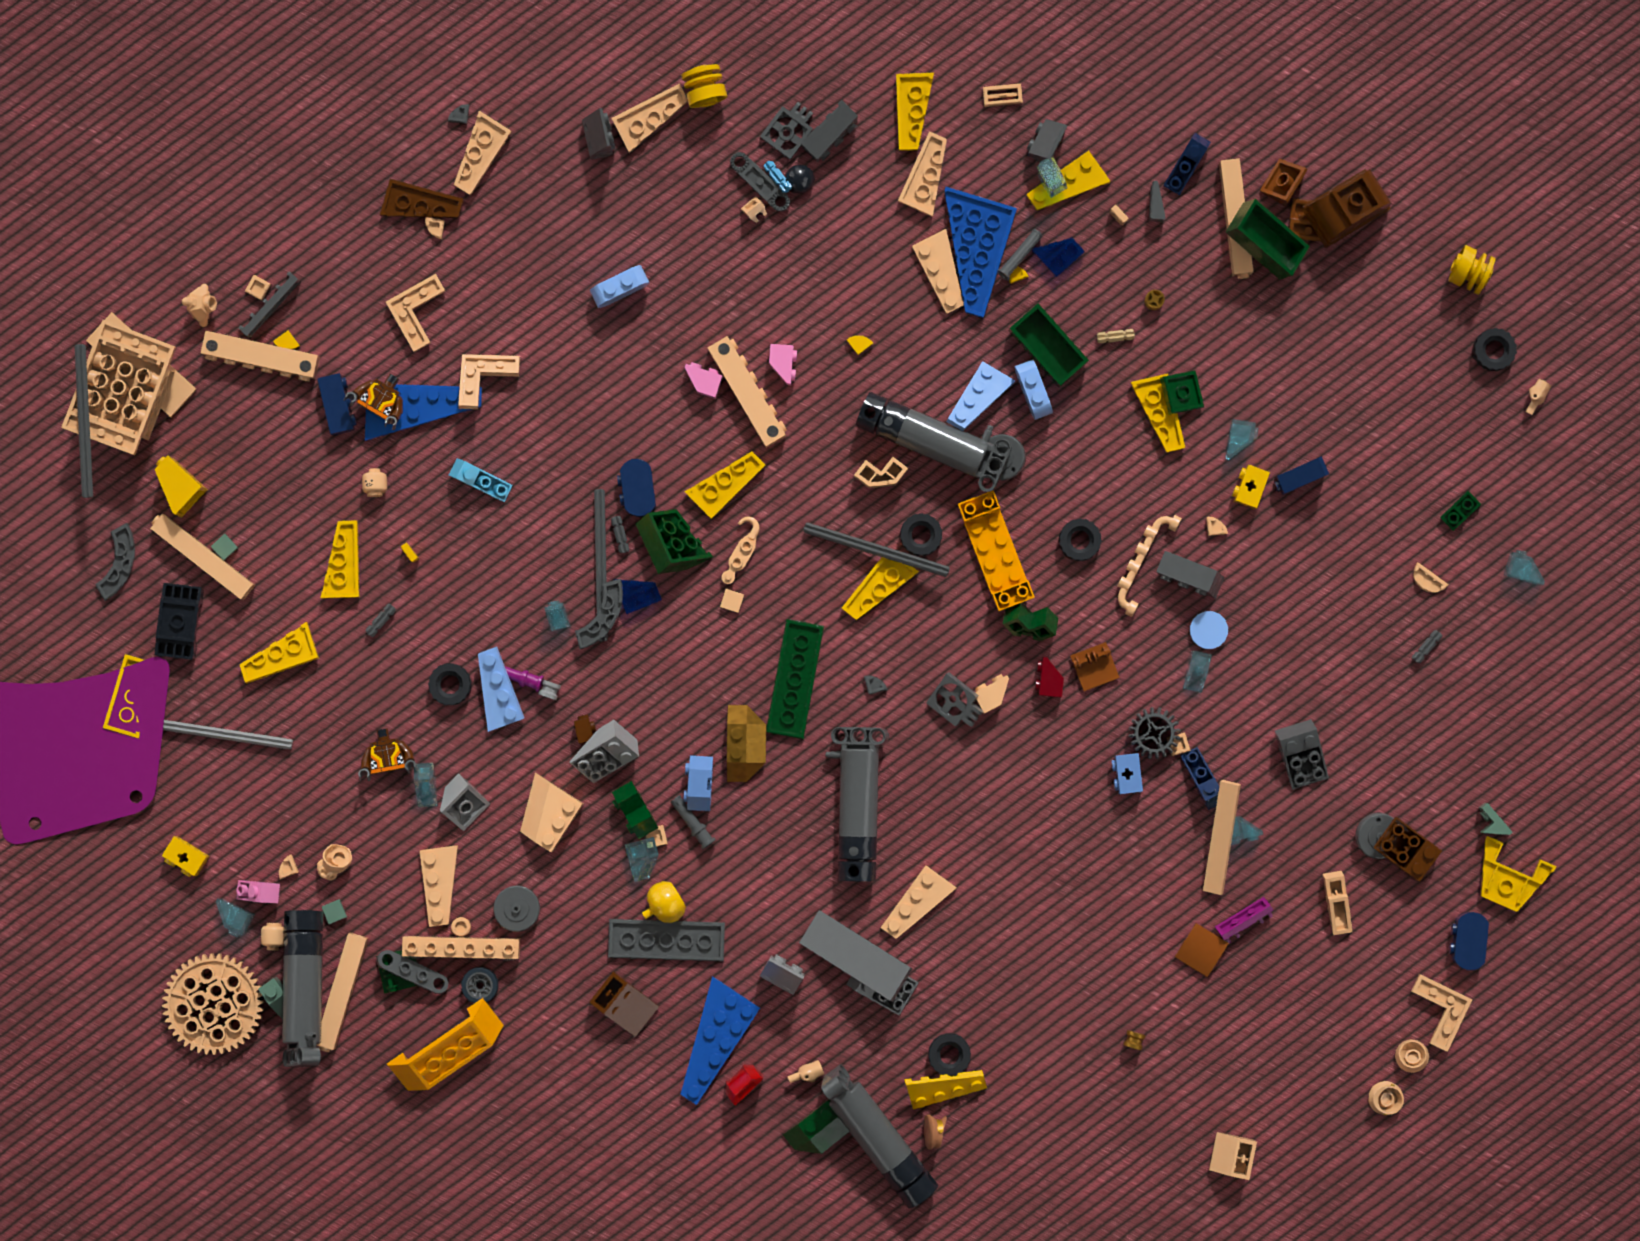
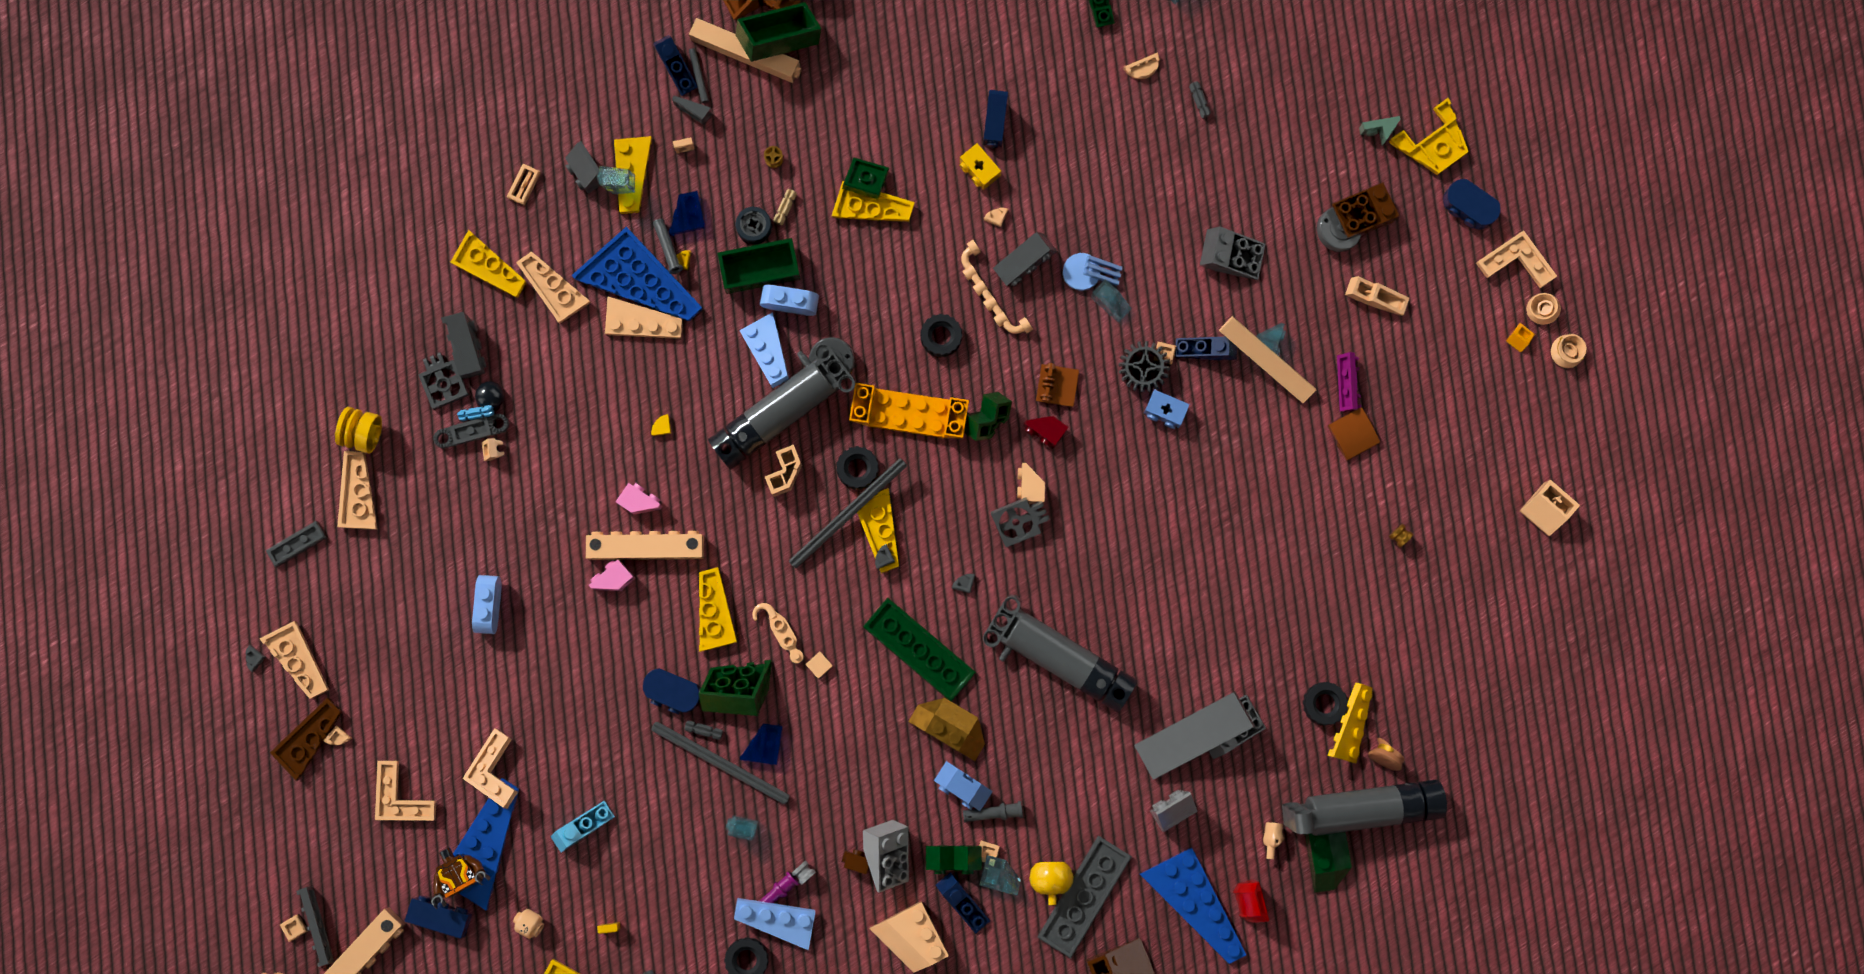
camera: 60 degrees left, 5 degrees down
(286, 341) = (355, 929): yellow tile -> none
(576, 90) = (296, 544): none -> dark grey tile
(598, 139) = (343, 545): dark grey slope -> none
(601, 839) = (962, 903): none -> dark blue slope
(606, 617) = (768, 783): dark grey tile -> none
(855, 602) = (883, 557): none -> dark grey tile
(918, 900) = (1173, 650): light nougat wing -> none
(1092, 315) = (748, 233): none -> wheel
(1189, 190) = (698, 75): none -> dark grey piece
(1223, 662) = (1116, 274): none -> medium blue tile
(1240, 436) = (931, 151): clear light blue slope -> none
(1374, 1049) = (1520, 337): none -> light orange slope

